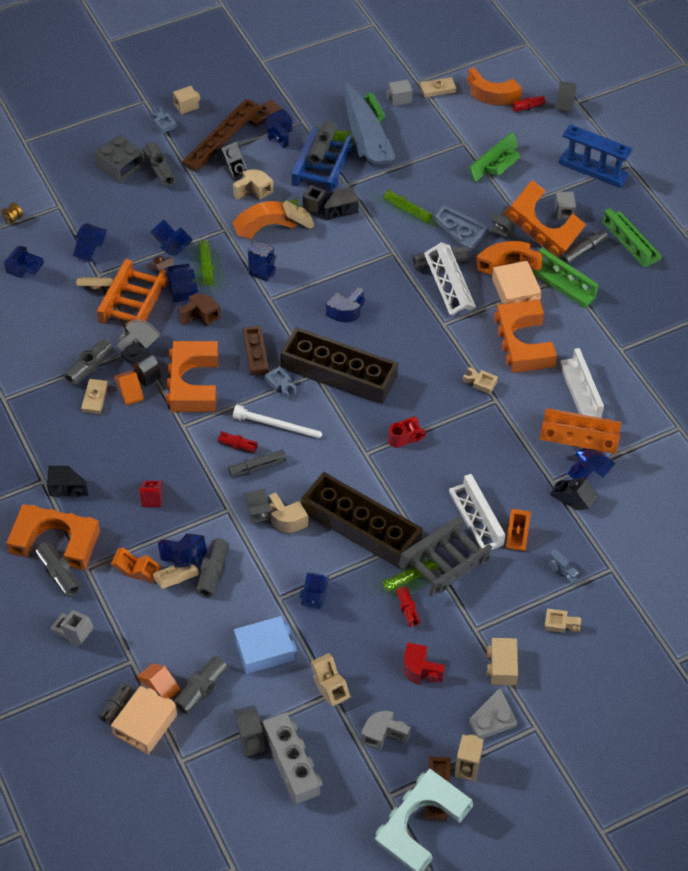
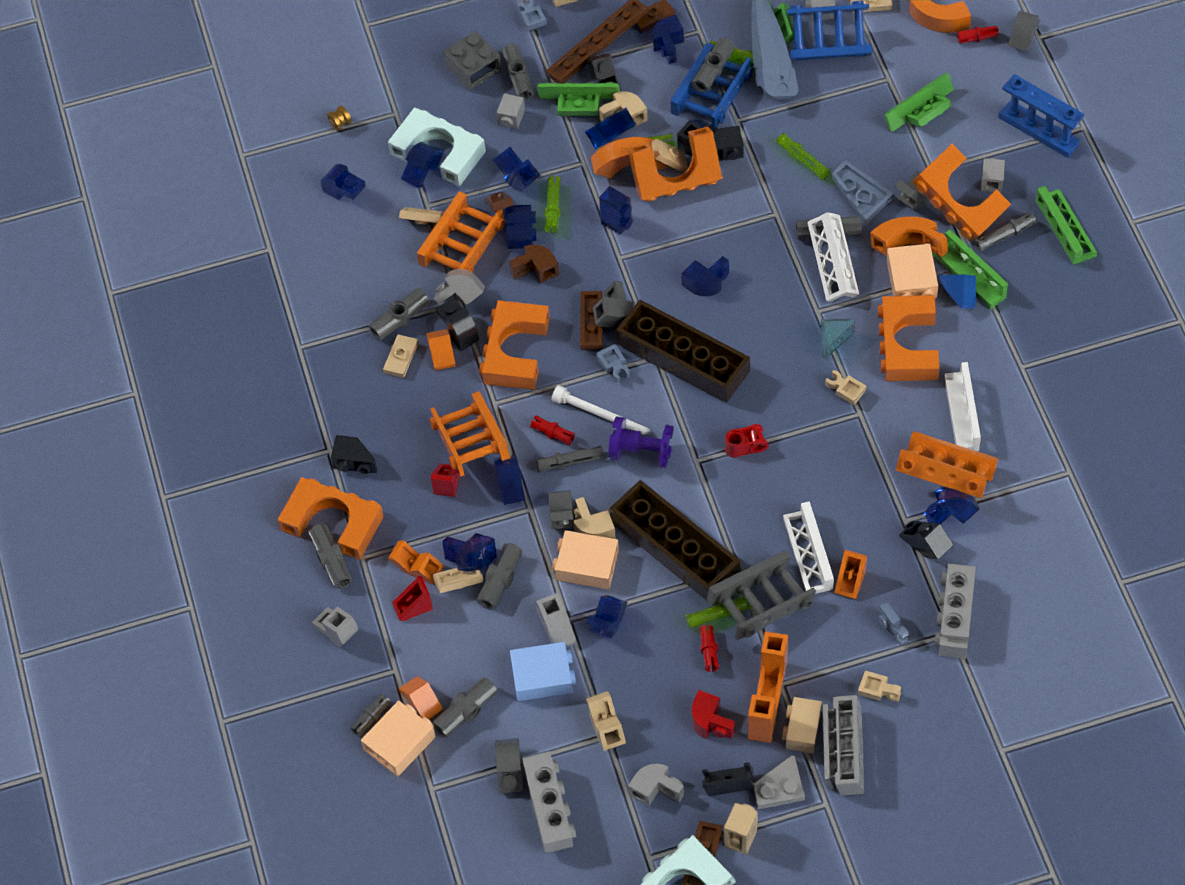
camera: 15 degrees right, 5 degrees up
(82, 211) = (423, 127): none -> light aqua arch
(139, 597) = (413, 600): none -> red slope
(158, 194) = (510, 111): none -> light grey brick
(178, 438) = (483, 420): none -> orange fence
(208, 485) = (509, 479): none -> clear blue brick
(214, 178) = (577, 98): none -> bright green bracket
(245, 198) = (610, 128): none -> clear blue brick
(269, 598) = (555, 620): none -> light grey slope
(272, 336) = (613, 307): none -> dark grey brick
(286, 545) = (586, 559): none -> light nougat brick
(309, 442) = (632, 441): none -> dark purple piece
(328, 222) = (702, 170): none -> orange arch
(405, 125) = (840, 49): none -> blue fence
(448, 717) = (728, 780): none -> black hinge
(462, 339) = (834, 334): none -> clear light blue slope
(467, 632) = (766, 702): none -> orange arch
(549, 678) = (849, 752): none -> light grey brick
(559, 292) = (960, 288): none -> blue slope
(614, 549) = (956, 611): none -> light grey brick

